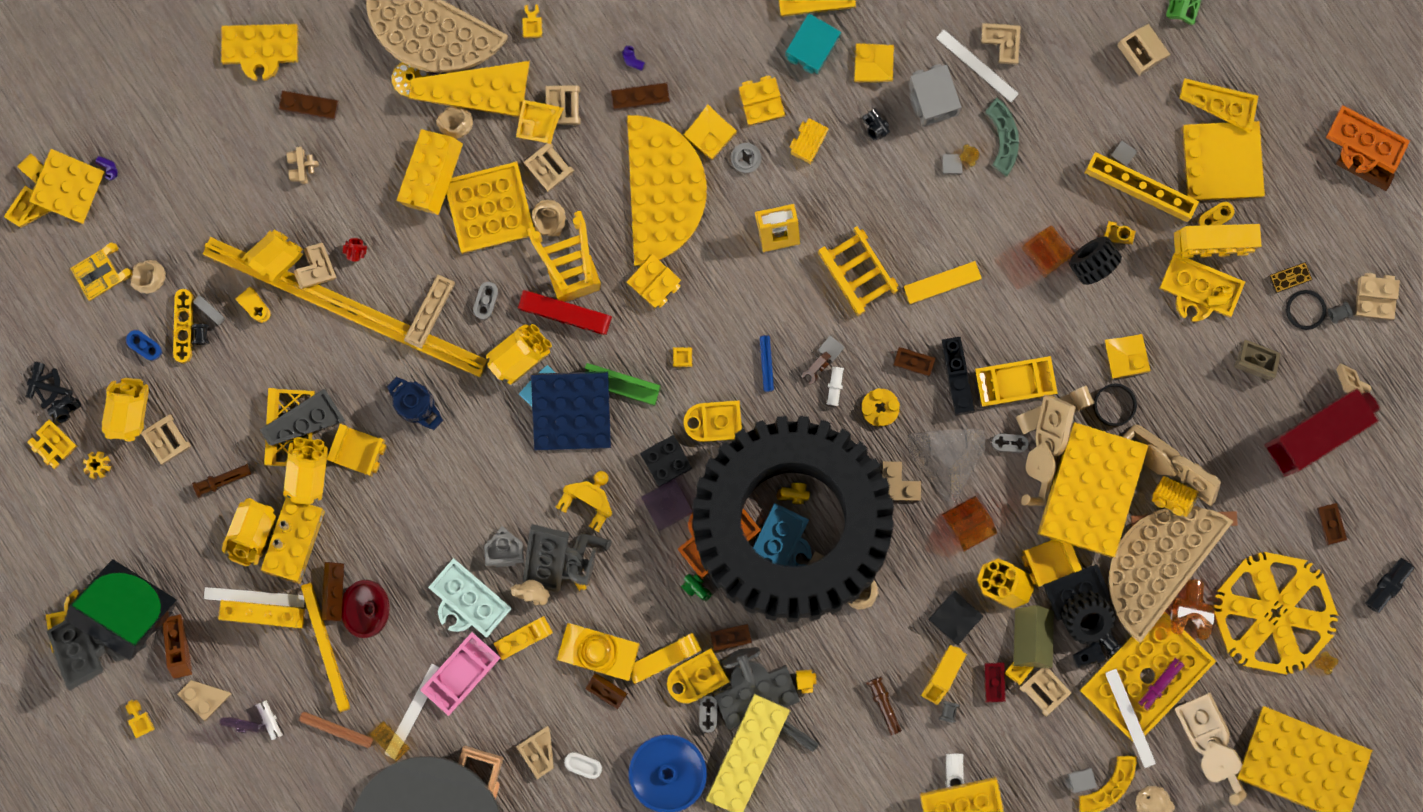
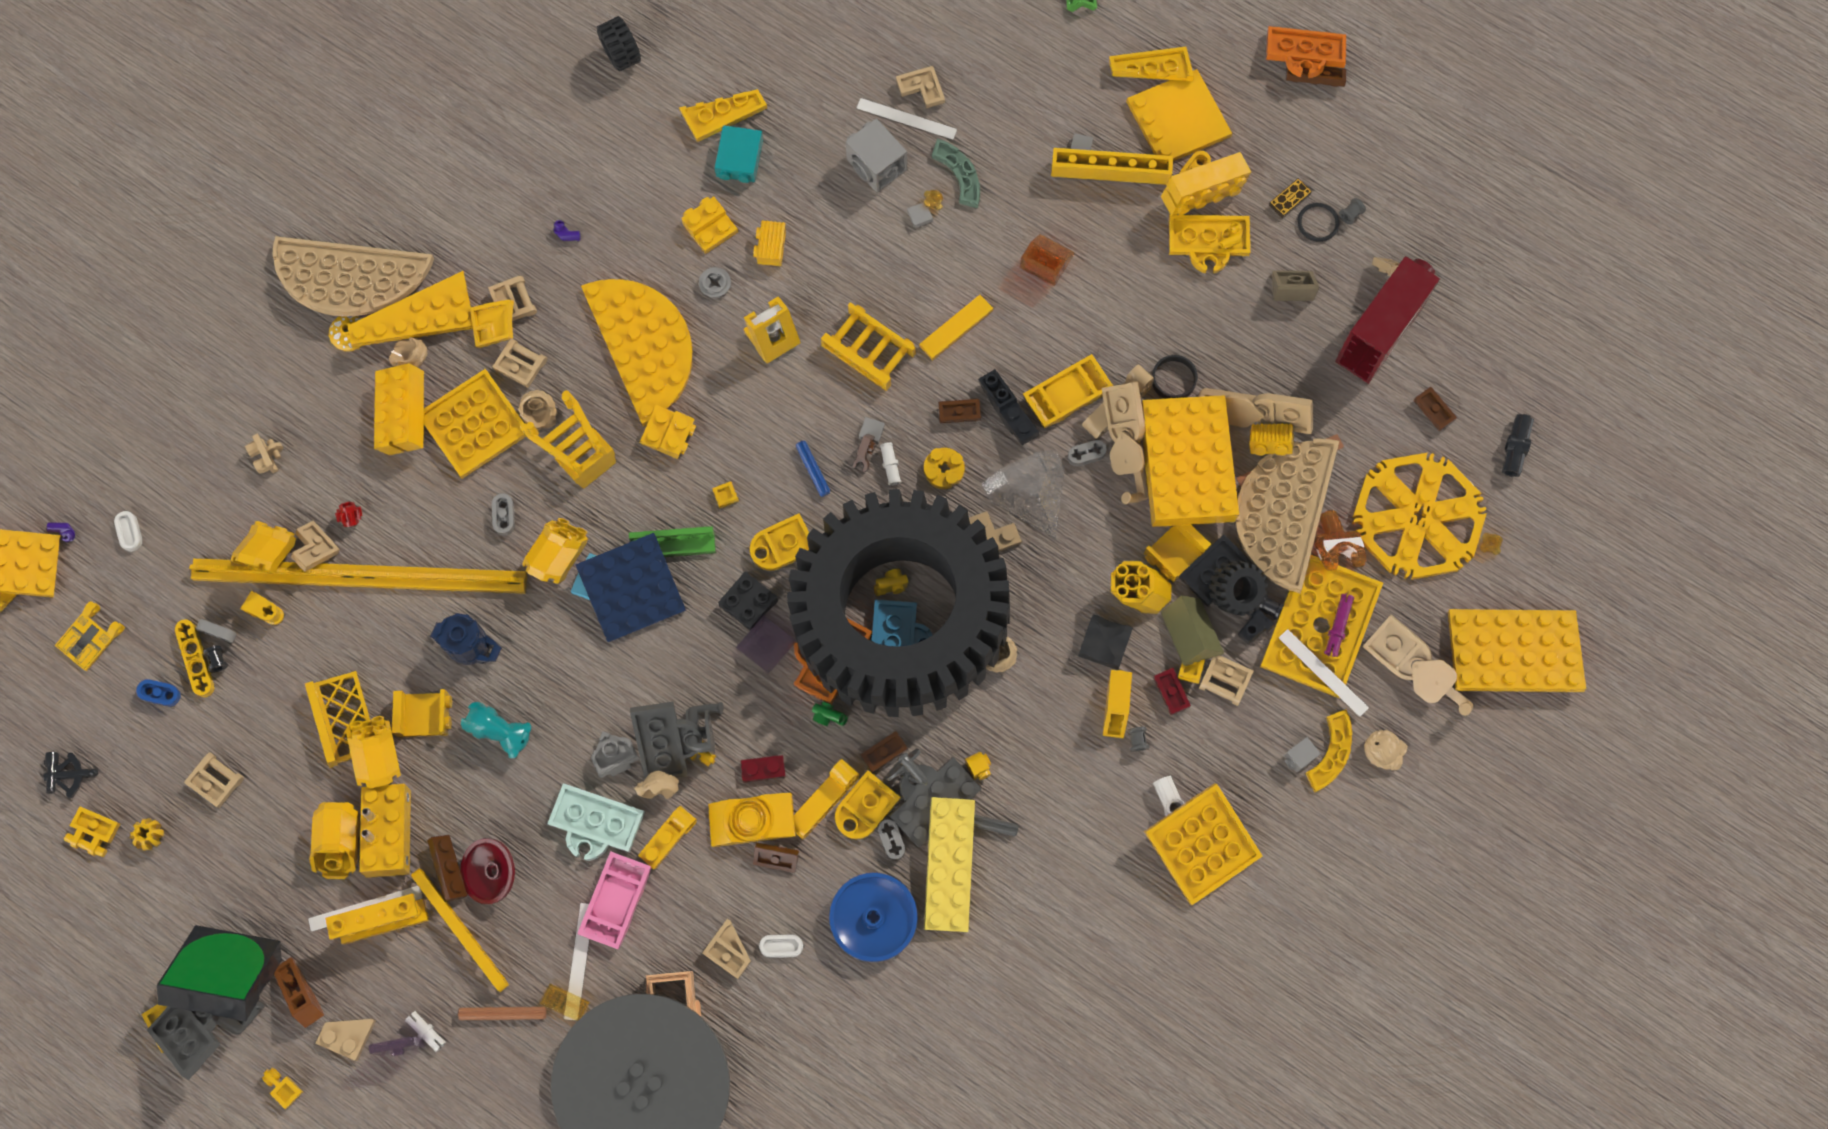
camera: 25 degrees left, 10 degrees down
(61, 408) = (90, 791): black plate -> none
(125, 409) = (158, 764): yellow brick -> none
(147, 276) = (139, 621): tan hair -> none
(163, 189) = (128, 531): none -> white tile
(213, 483) = (309, 780): reddish brown pin -> none
(259, 47) = (183, 357): yellow plate -> none
(305, 418) = (353, 701): dark grey wing -> none
(308, 105) = (252, 394): reddish brown plate -> none
(406, 482) = (485, 723): none -> teal animal
(429, 311) = (448, 546): tan tile -> none
(532, 25) = (453, 235): yellow plate -> none
(564, 312) = (588, 495): red beam -> none
(591, 495) = (682, 664): yellow connector -> none
(624, 610) = (763, 768): none -> dark red plate
(640, 96) = (587, 264): reddish brown plate -> none
(710, 132) = (669, 272): yellow plate -> none
(874, 63) = (805, 151): yellow plate -> none
(877, 127) = (832, 206): black plate -> none
(881, 696) = (1063, 752): reddish brown pin -> none
(970, 523) = (1080, 544): clear orange slope -> none
(1095, 260) = (1097, 246): black tyre -> none
(1115, 232) = (1112, 217): yellow plate -> none
(1127, 356) = (1166, 328): yellow plate -> none
(1143, 49) = (1058, 45): tan slope -> none
(1377, 296) = (1380, 184): tan plate -> none

